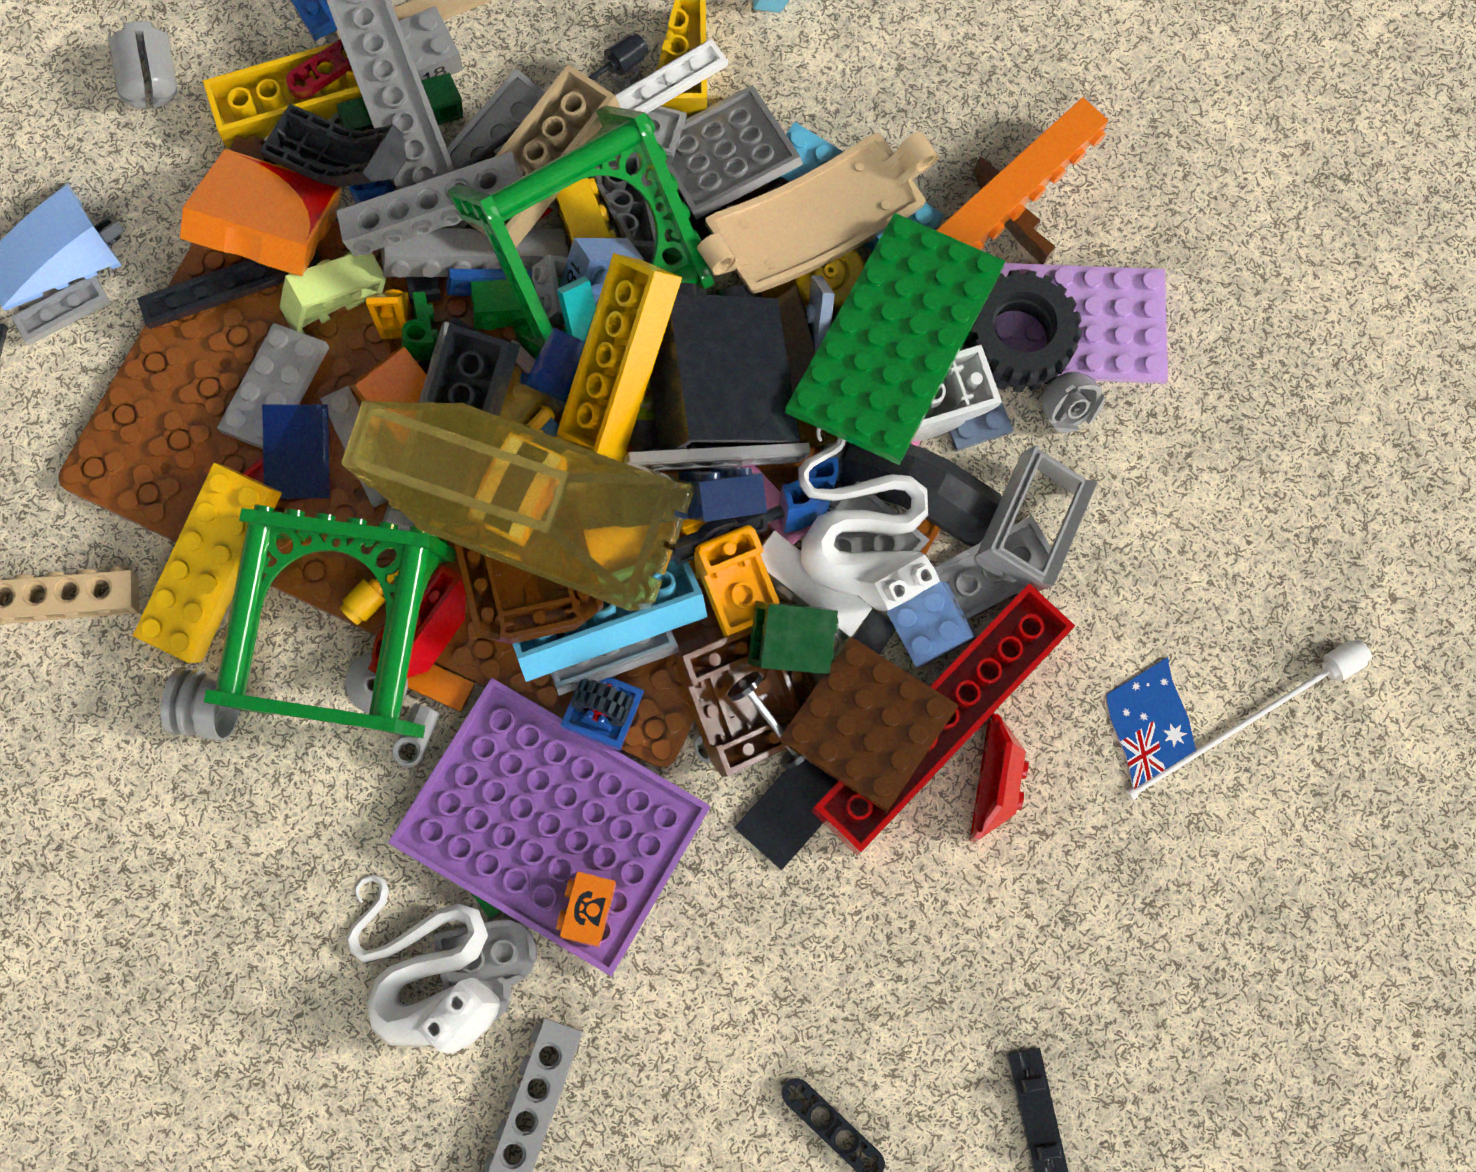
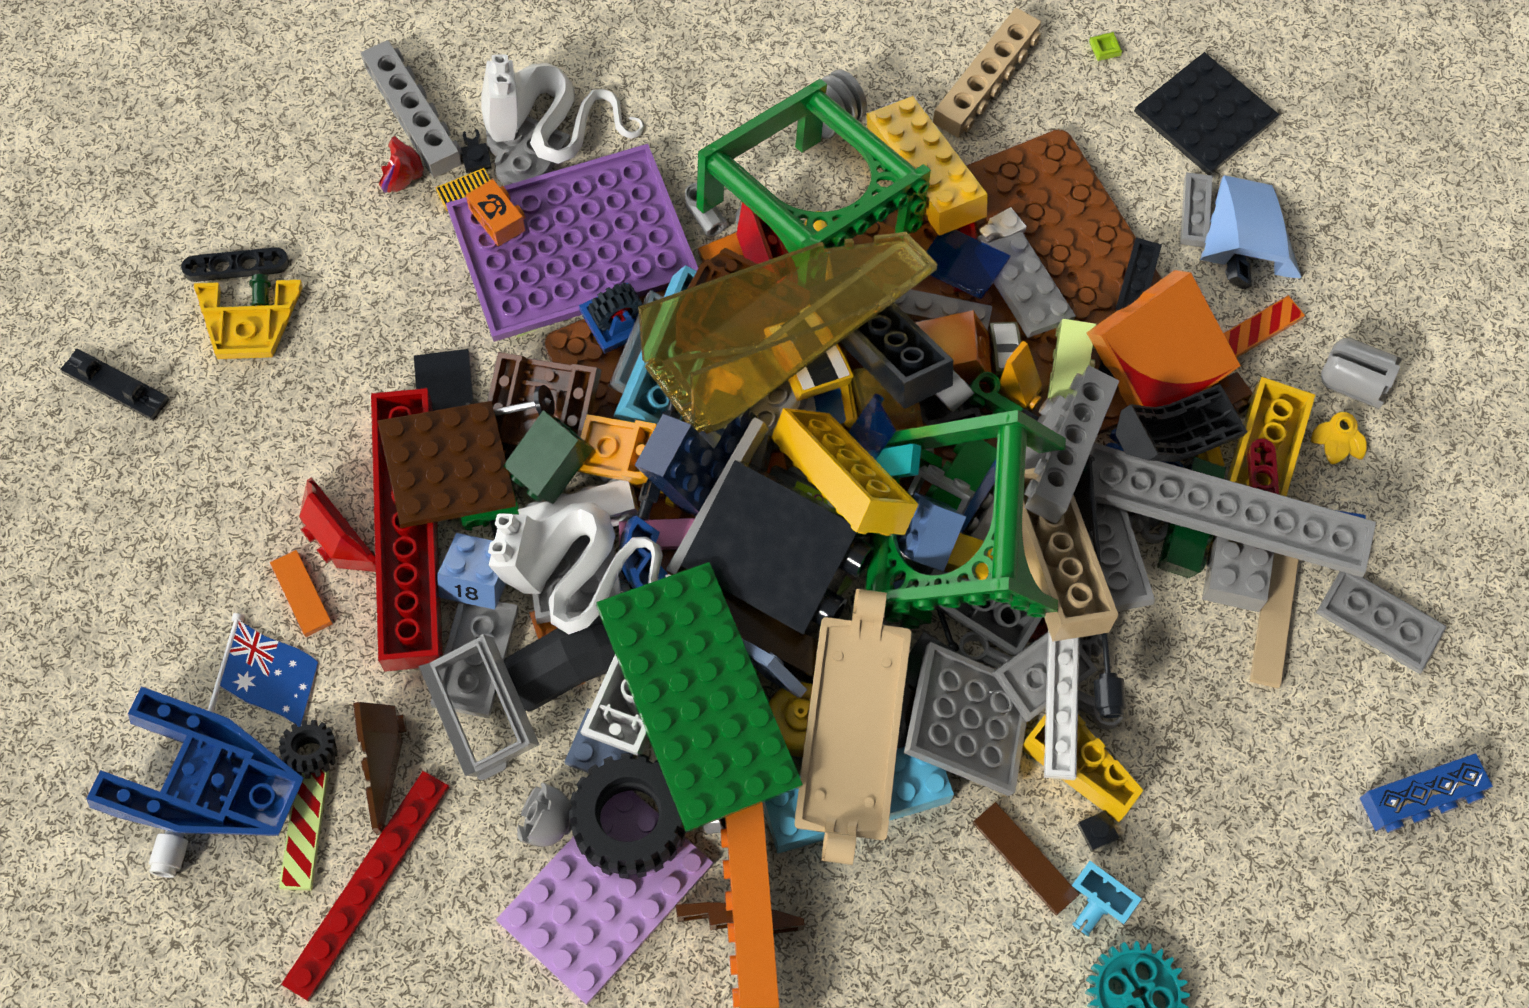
camera: 135 degrees right, 10 degrees down
(148, 179) = (1263, 326): none -> tile
(223, 449) = (1001, 226): none -> white plate
(224, 53) = (1340, 442): none -> yellow plate
(354, 356) = (1004, 339): none -> slope
(526, 1011) = (475, 154): none -> black plate
(572, 985) = (461, 186): none -> tile
(606, 1066) = (402, 167): none -> red hair
(724, 20) = (1098, 831): none -> black plate
(790, 55) = (1026, 859): none -> reddish brown tile
(840, 1074) = (260, 292): none -> dark green pin
(888, 1048) = (247, 329): none -> yellow wing
(1067, 761) = (301, 593): none -> orange tile
(1127, 576) = (380, 733): none -> reddish brown wedge
(1192, 611) = (305, 735): none -> black tyre
(1227, 497) = (364, 886): none -> red plate
(1233, 581) = (304, 834): none -> tile
(1272, 662) = (216, 784): none -> blue wedge

